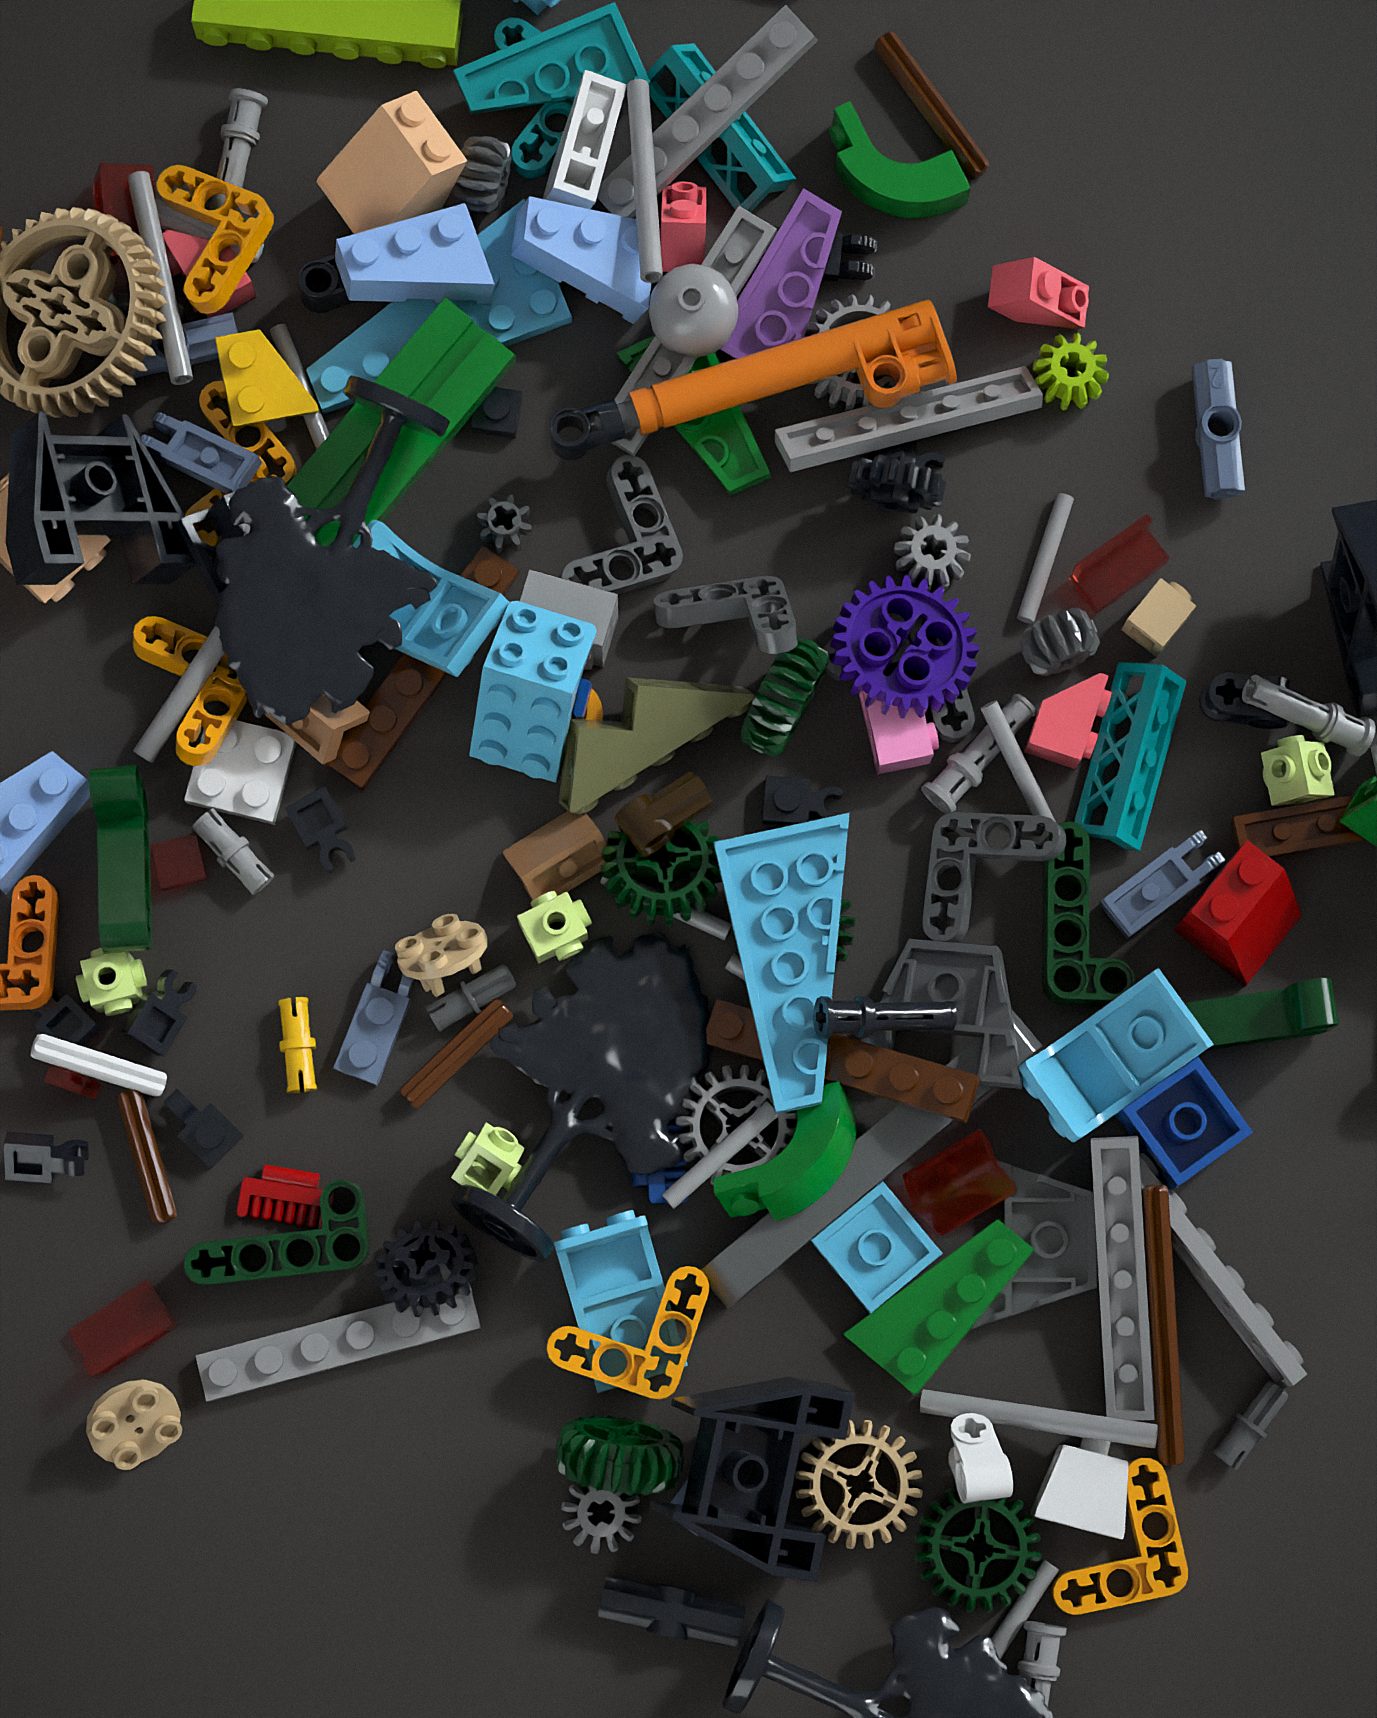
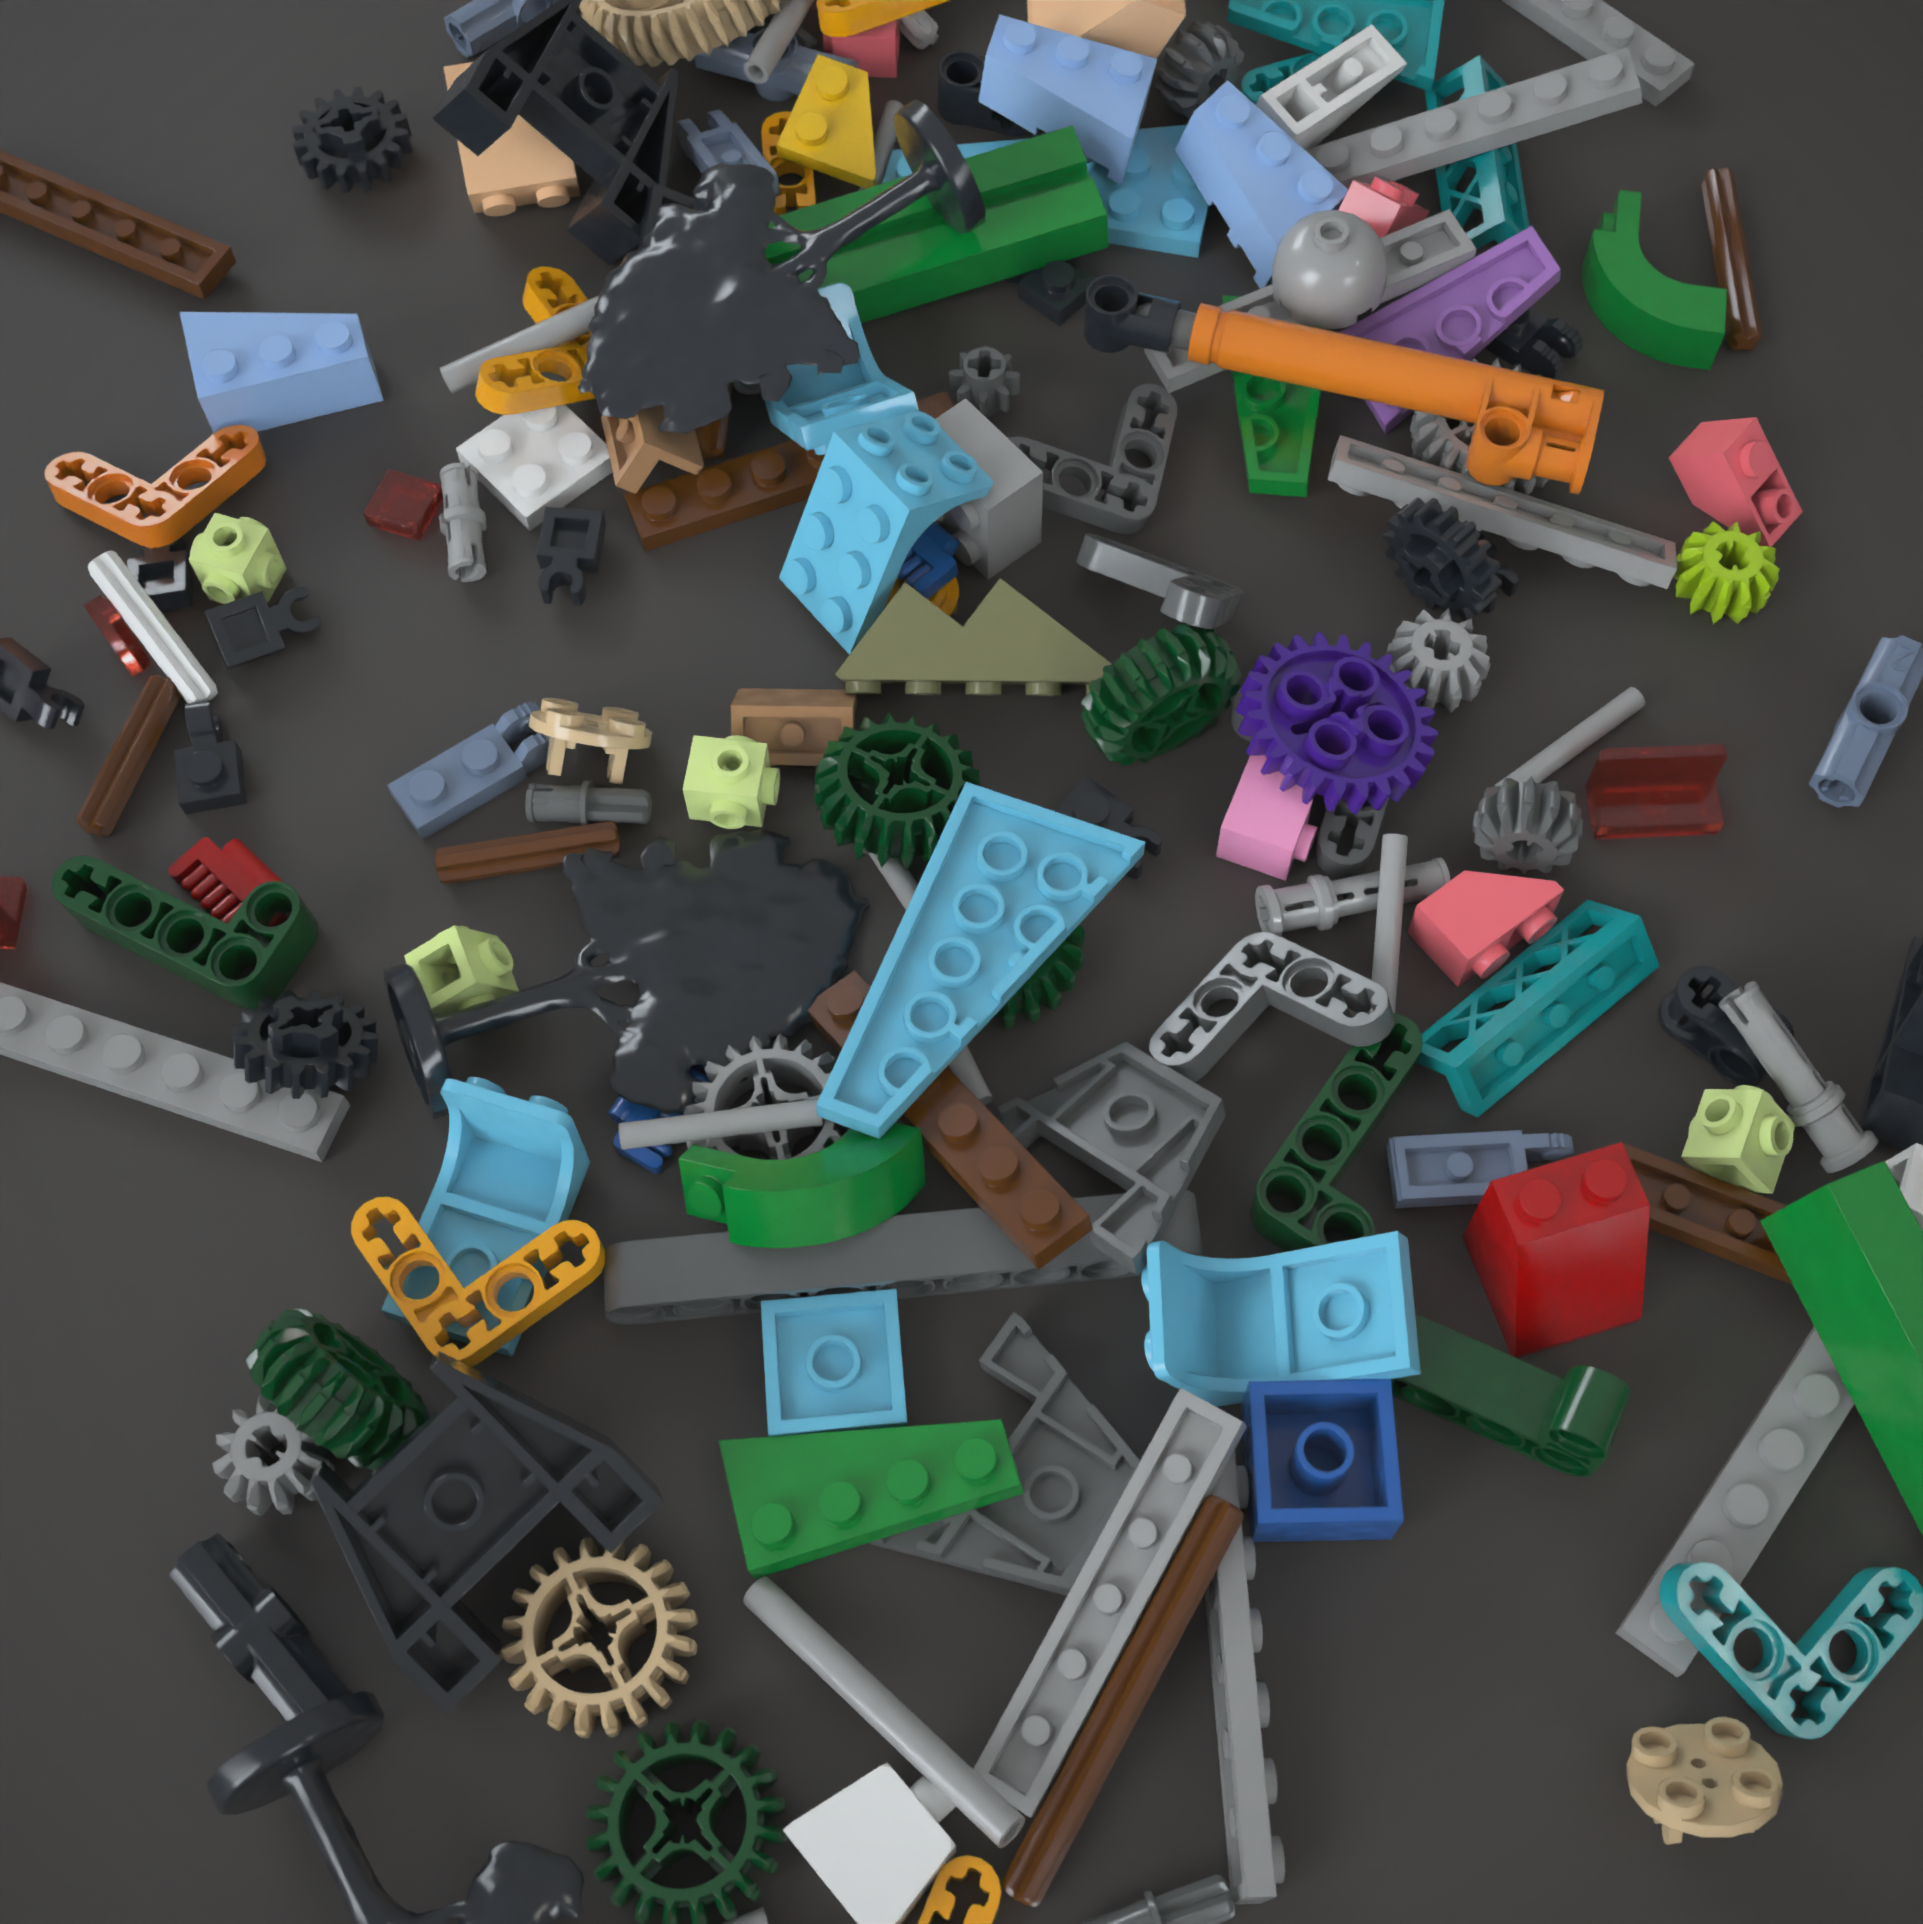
camera: 40 degrees right, 15 degrees down
(122, 858) = (347, 450): dark green beam -> none
(297, 1045) = (371, 742): yellow pin -> none
(644, 181) = (1362, 139): light grey piece -> none
(654, 819) = (912, 721): dark brown piece -> none
(863, 1022) = (1091, 1126): black pin -> none
(958, 1183) = (984, 1352): clear red panel -> none
(978, 1460) = (761, 1702): white piece -> none
(1159, 616) = (1670, 873): tan brick -> none

